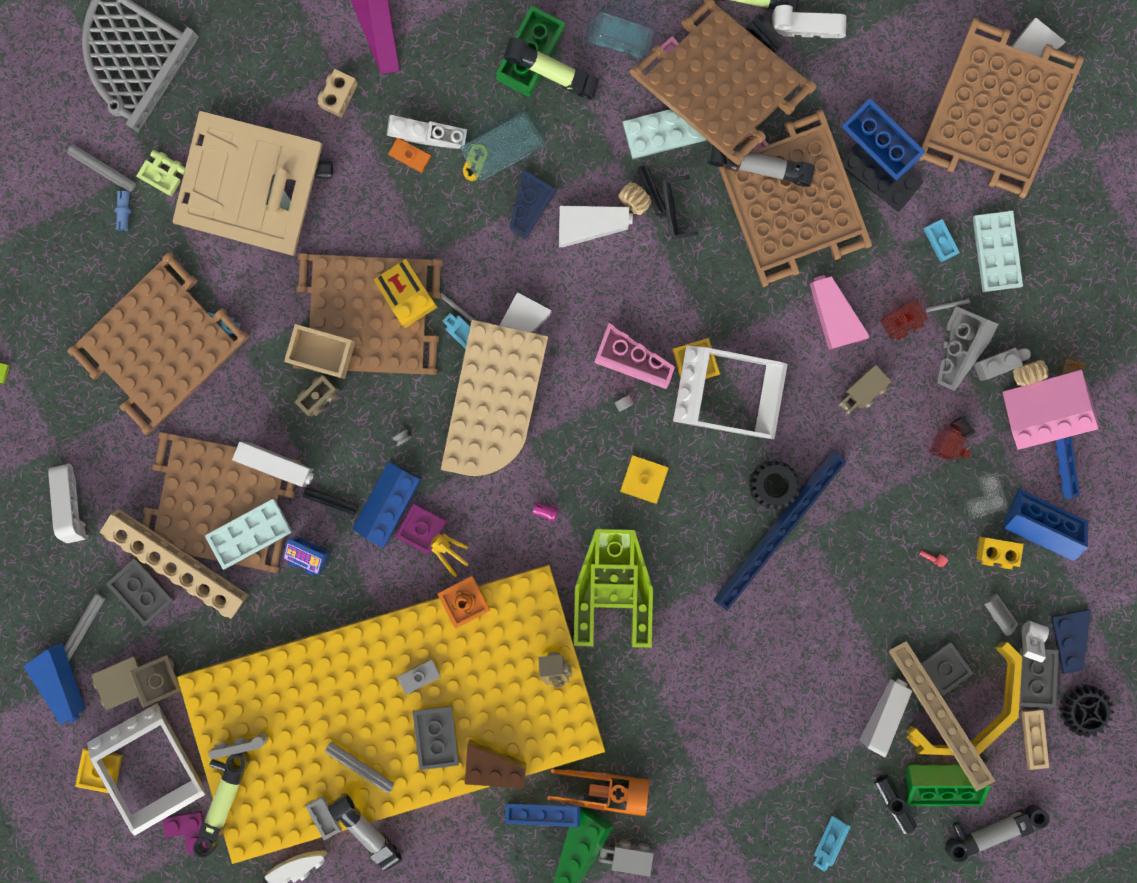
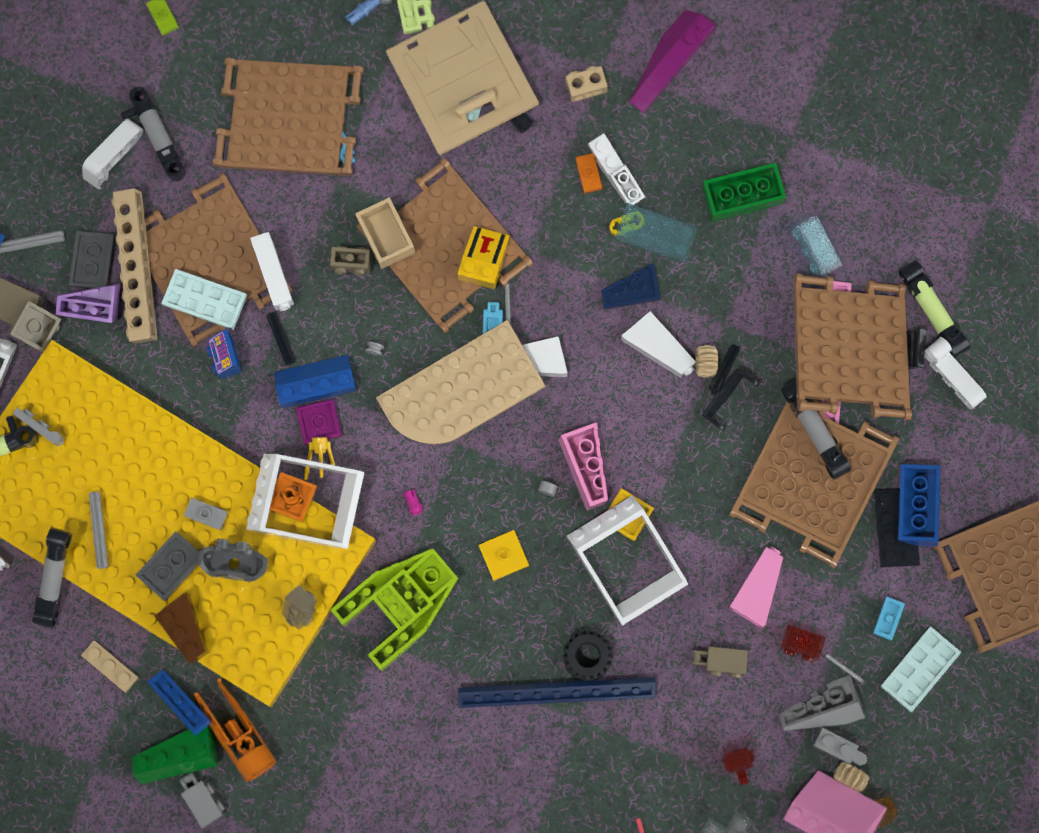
camera: 45 degrees right, 10 degrees down
(83, 456) = (156, 132): none -> piece
(175, 622) = (91, 304): none -> medium lavender wedge
(322, 818) = (36, 536): light grey plate -> none
(443, 621) = (265, 488): none -> white window
(463, 701) = (215, 561): none -> dark grey piece
(468, 840) = (110, 666): none -> tan plate
(570, 78) = (750, 237): black piece -> none
(659, 133) = (770, 336): light aqua plate -> none
(962, 426) = (762, 763): black bush -> none

